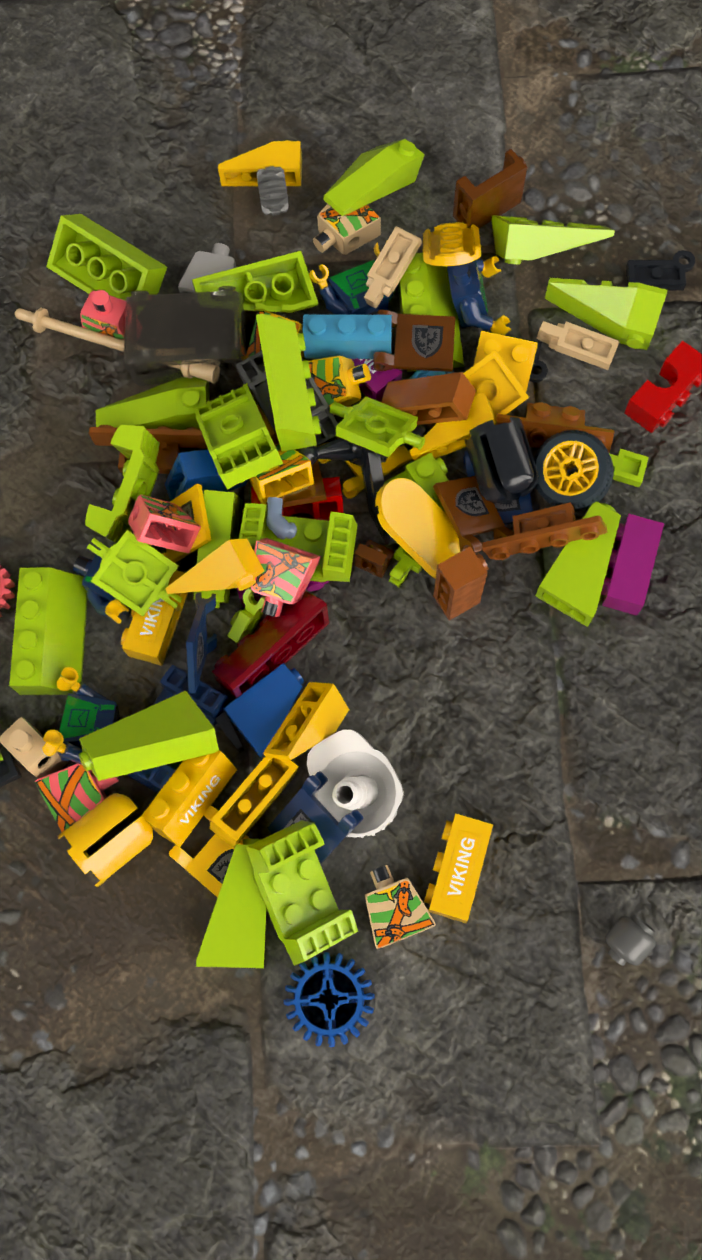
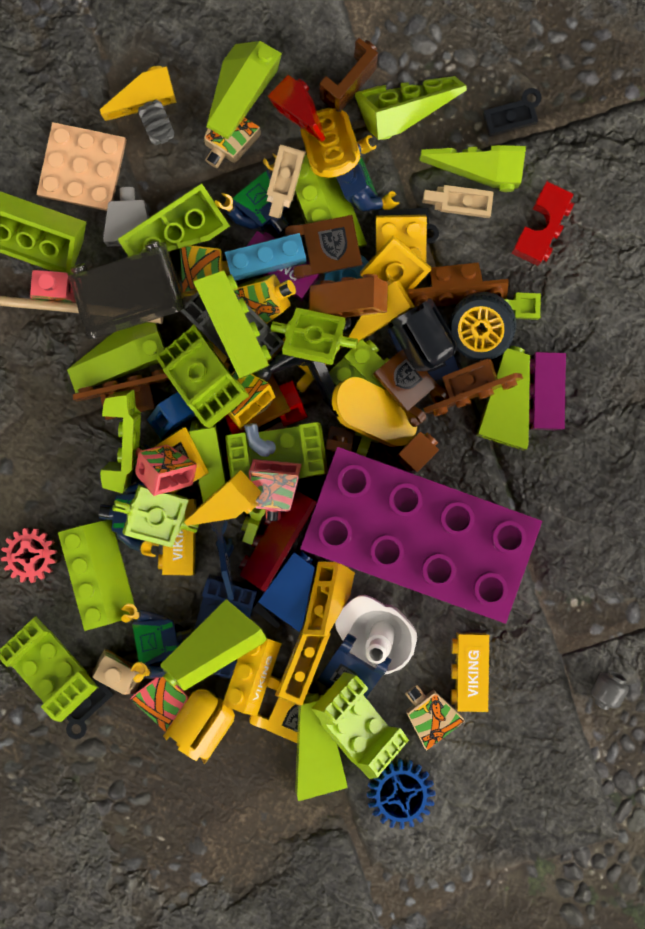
camera: 20 degrees left, 15 degrees up
(181, 219) = (81, 166): none -> light nougat plate
(424, 206) = (296, 104): none -> red slope
(434, 662) = (421, 535): none -> magenta brick

